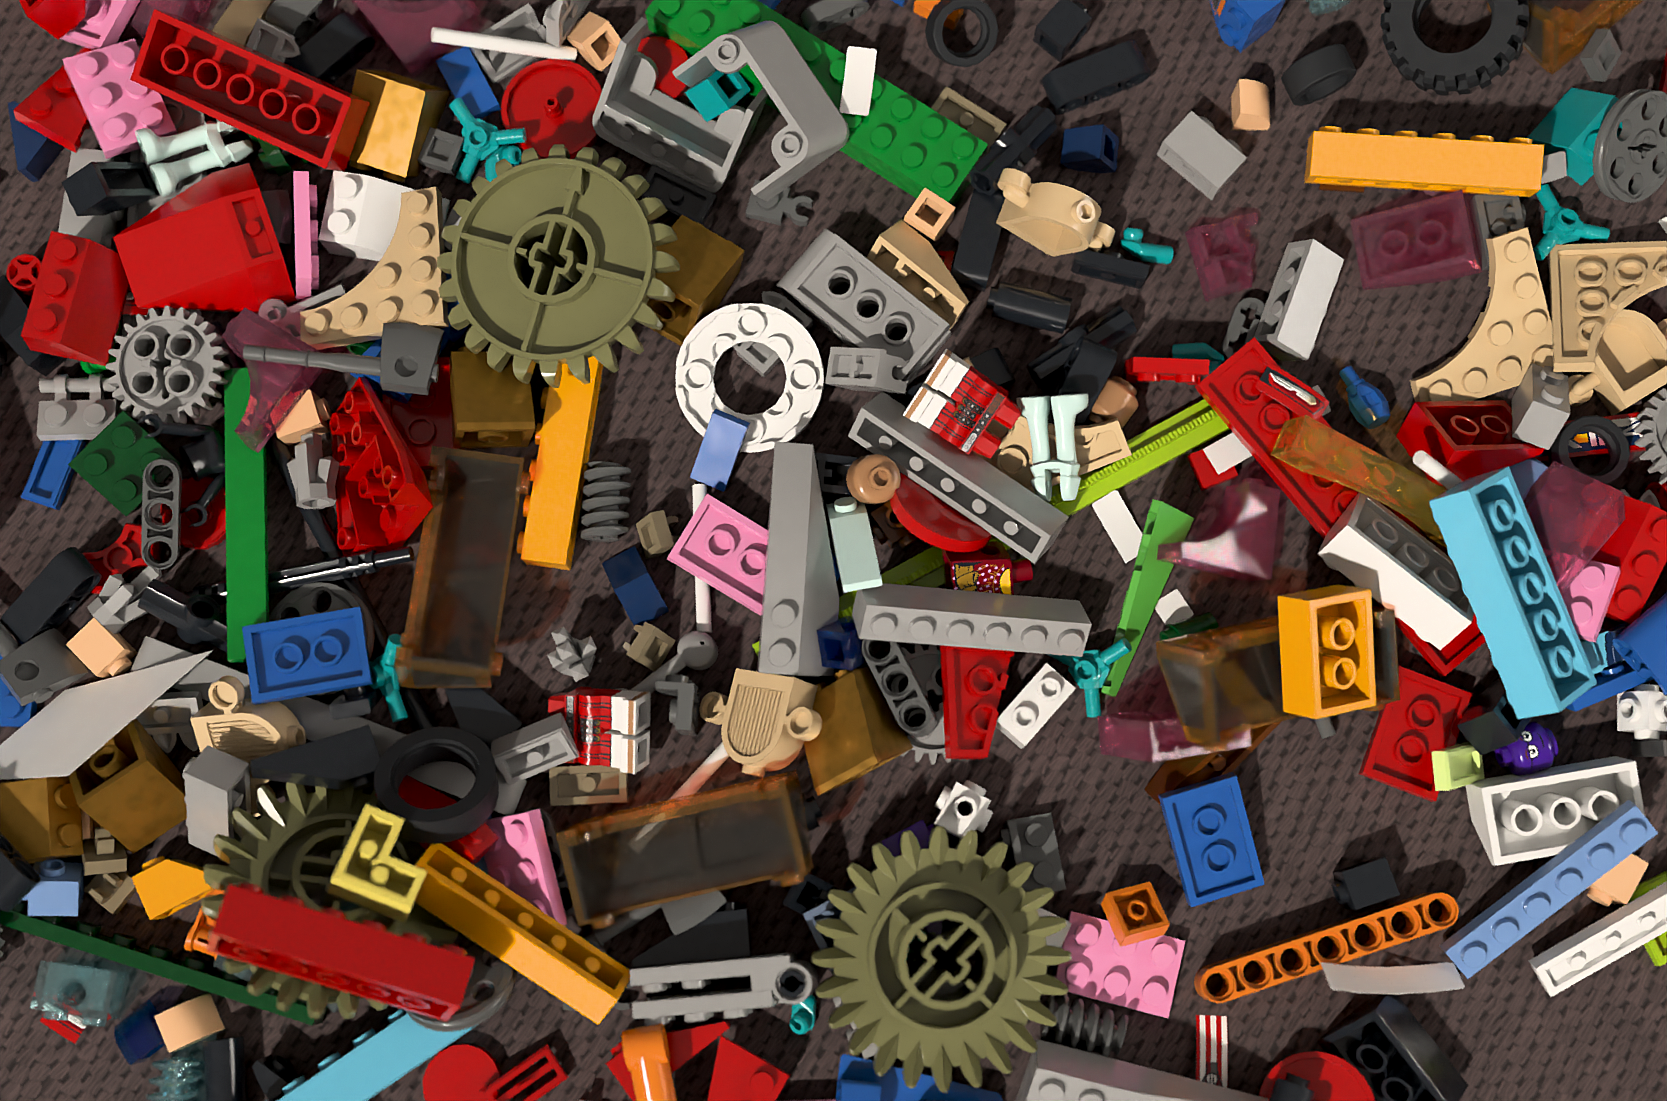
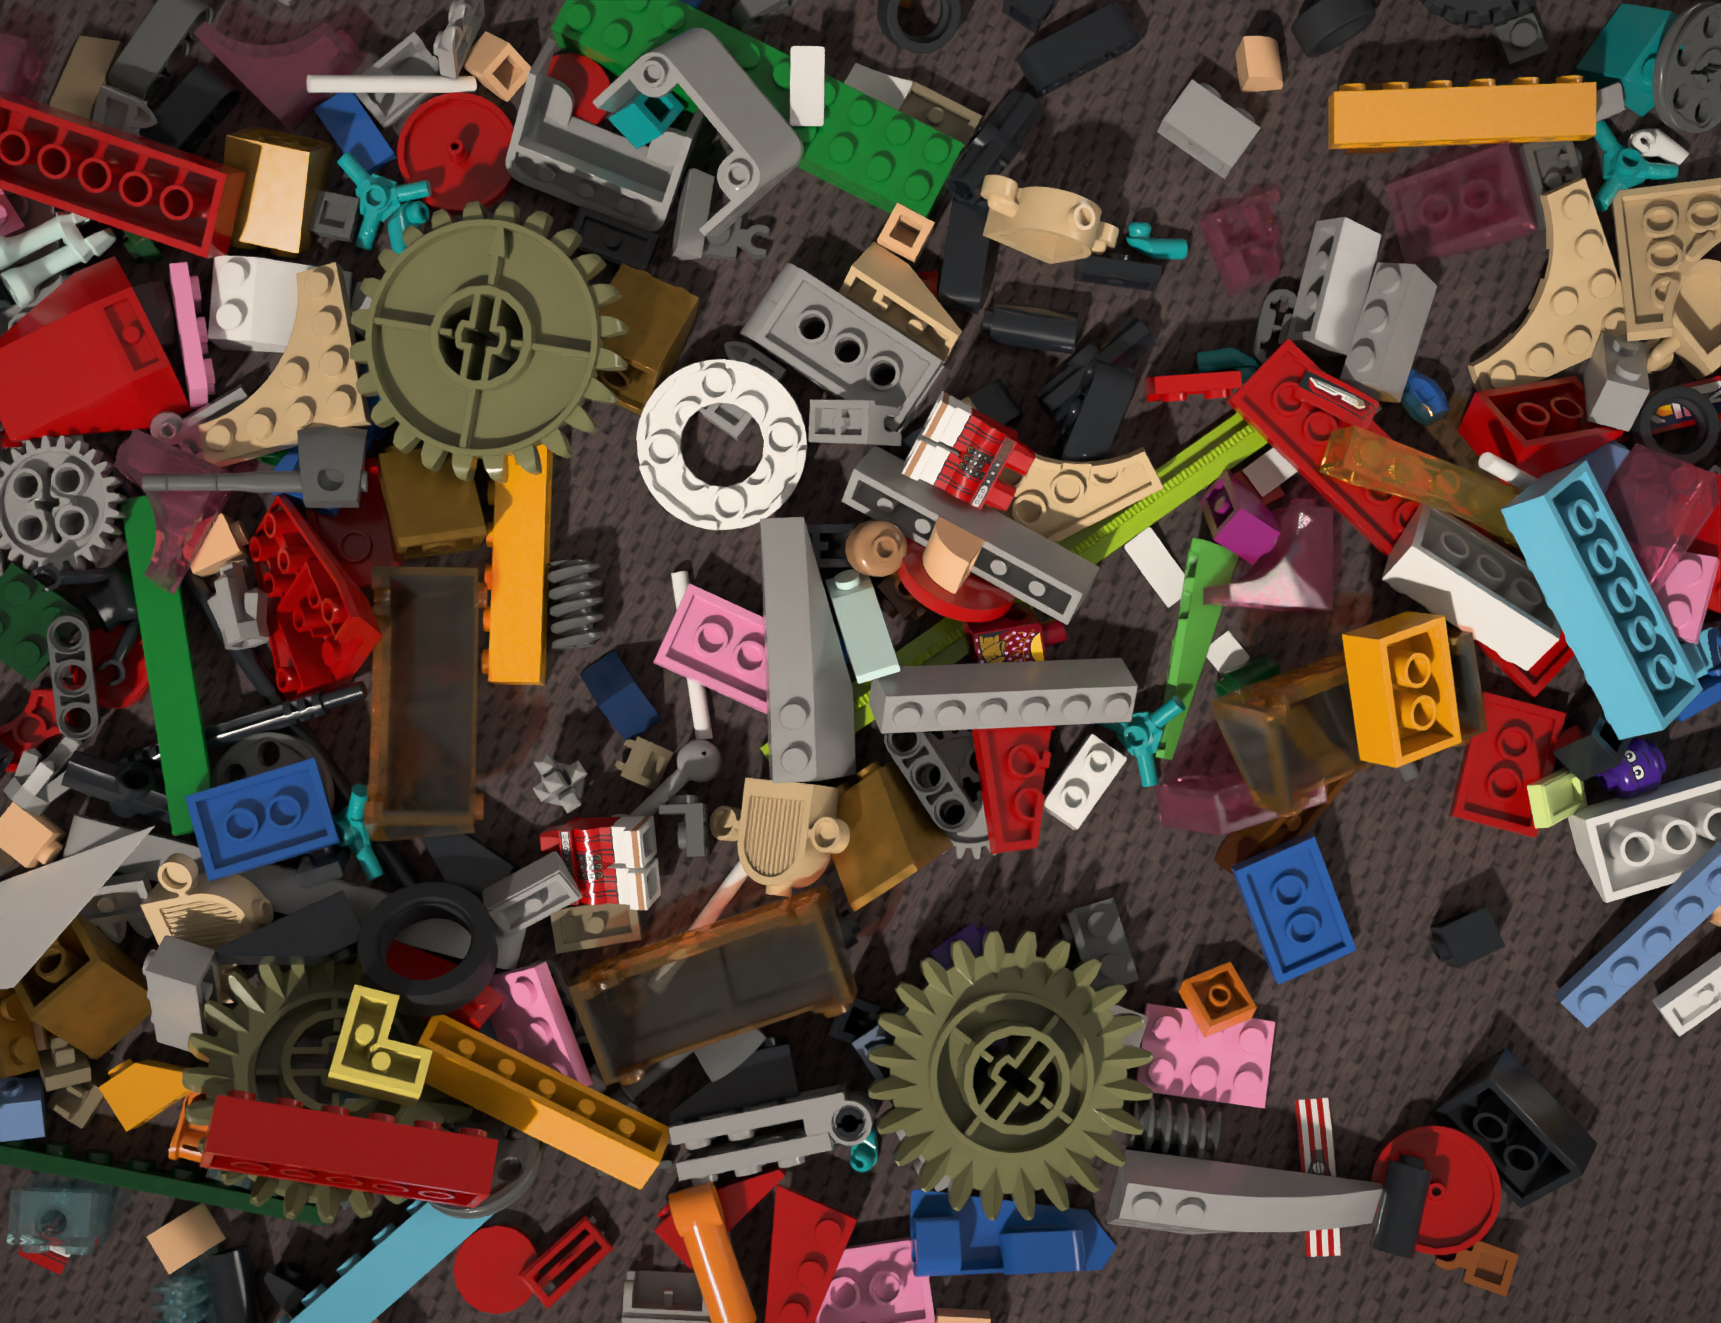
camera: 10 degrees left, 5 degrees up
(139, 1034) = (131, 1256): clear blue brick -> none
(655, 533) = (637, 634): dark tan tile -> none
(719, 450) = (698, 531): tile -> none
(748, 175) = (692, 215): none -> light grey slope
(840, 645) = (860, 739): clear blue brick -> none
(923, 91) = (878, 85): none -> white sticker
(938, 490) = (950, 554): none -> light nougat brick
(949, 816) = (999, 901): white brick -> none
(1064, 411) = (1083, 446): light aqua piece -> none
(1090, 149) = (1081, 135): dark blue brick -> none
(1114, 401) = (1138, 428): medium nougat head -> none
(1196, 489) = (1239, 518): none -> magenta slope
(1343, 342) = (1389, 331): none -> light grey brick
(1344, 946) = (1449, 1010): orange beam -> none
(1394, 979) = (1506, 1038): white sticker -> none
(1479, 110) = (1519, 40): none -> dark grey plate
(1591, 208) = (1657, 144): none -> white arm

